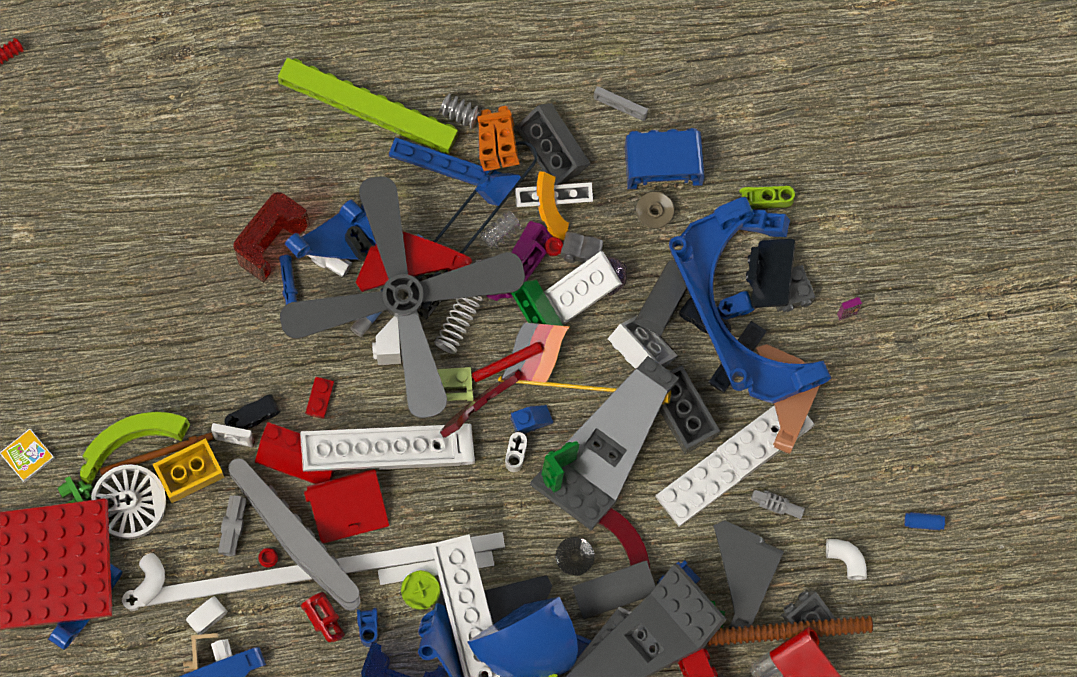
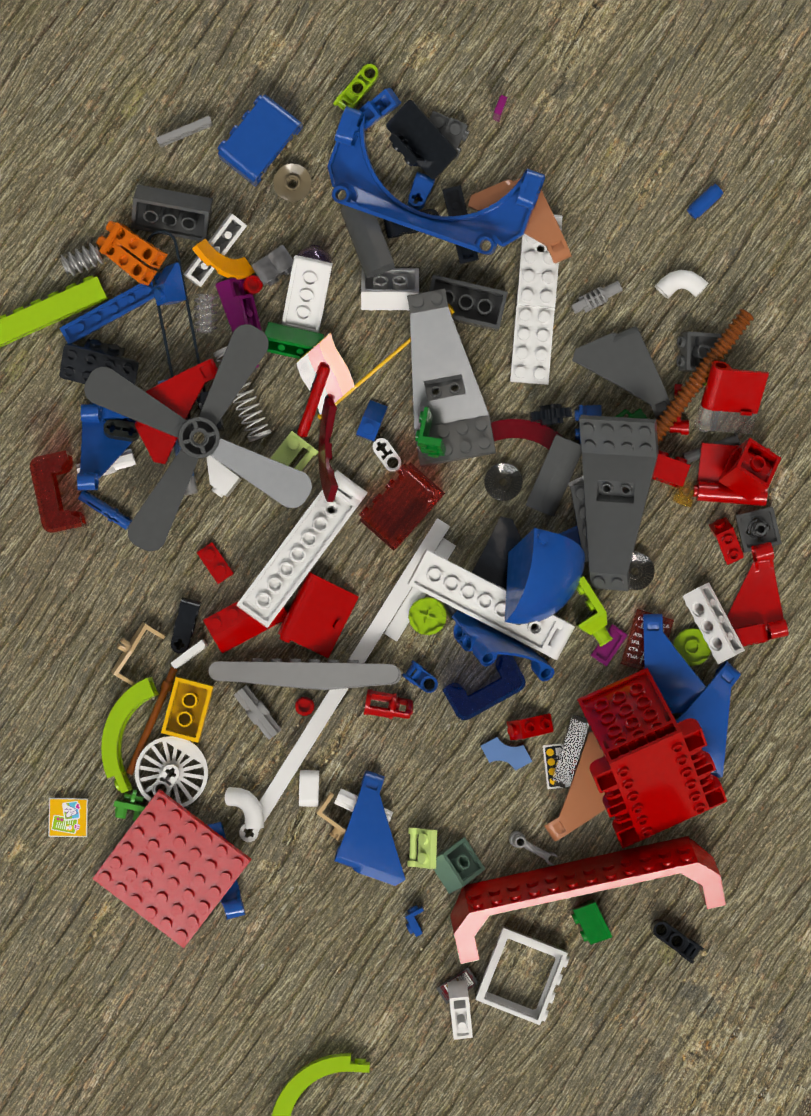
camera: 45 degrees left, 15 degrees up
(198, 387) = (128, 649): none -> tan piece
(407, 188) = (80, 361): none -> black bracket
(486, 496) = (401, 506): none -> clear red windscreen
(658, 545) = (551, 414): none -> black gear
(739, 651) = (680, 426): none -> red brick

